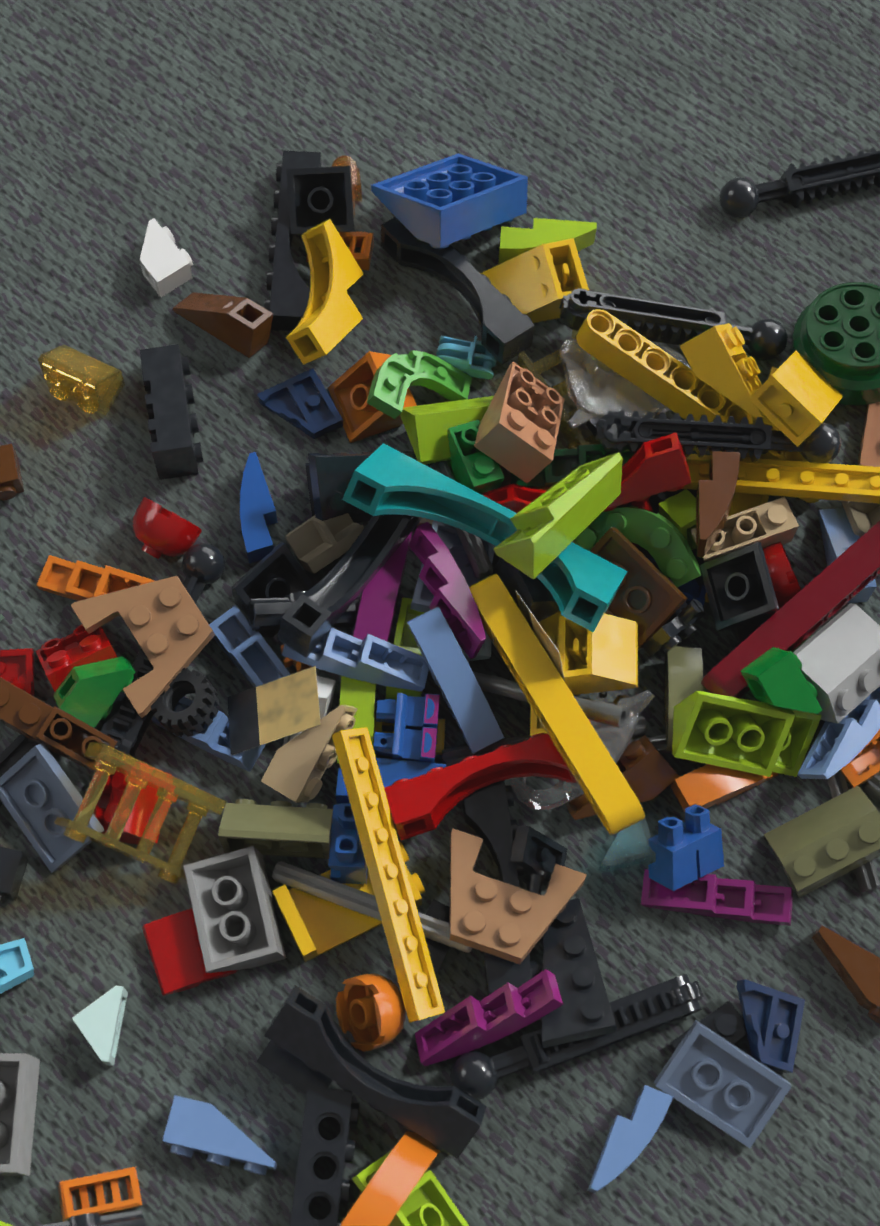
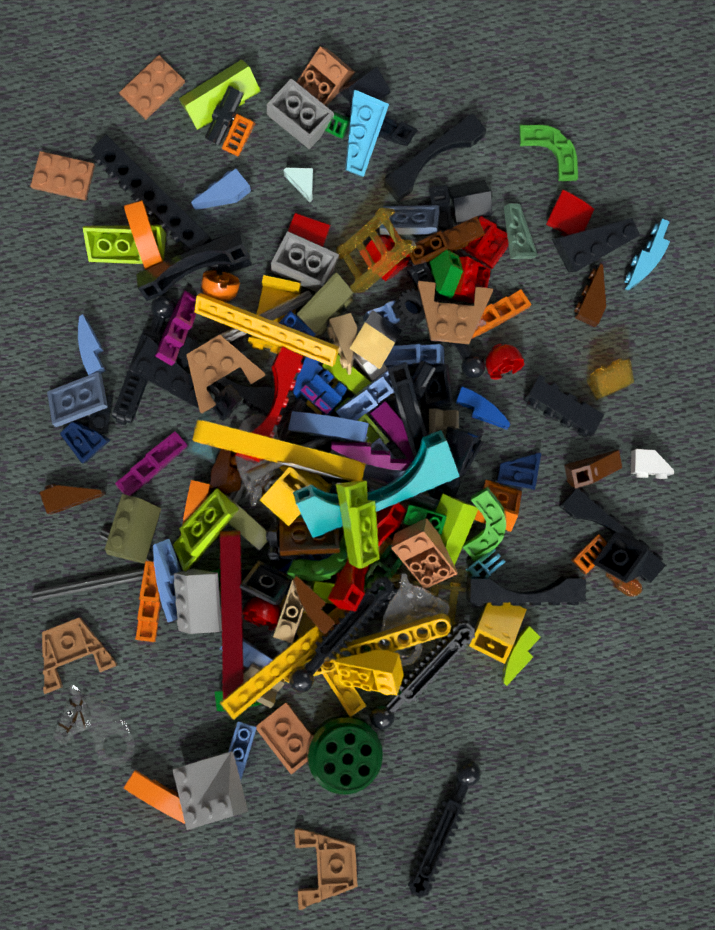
camera: 130 degrees right, 15 degrees up
(329, 308) = (557, 518): yellow arch -> none
(453, 198) = (574, 624): blue slope -> none
(686, 849) = (177, 462): blue hips -> none
(780, 682) = (207, 558): green slope -> none
(796, 398) = (331, 690): yellow panel -> none

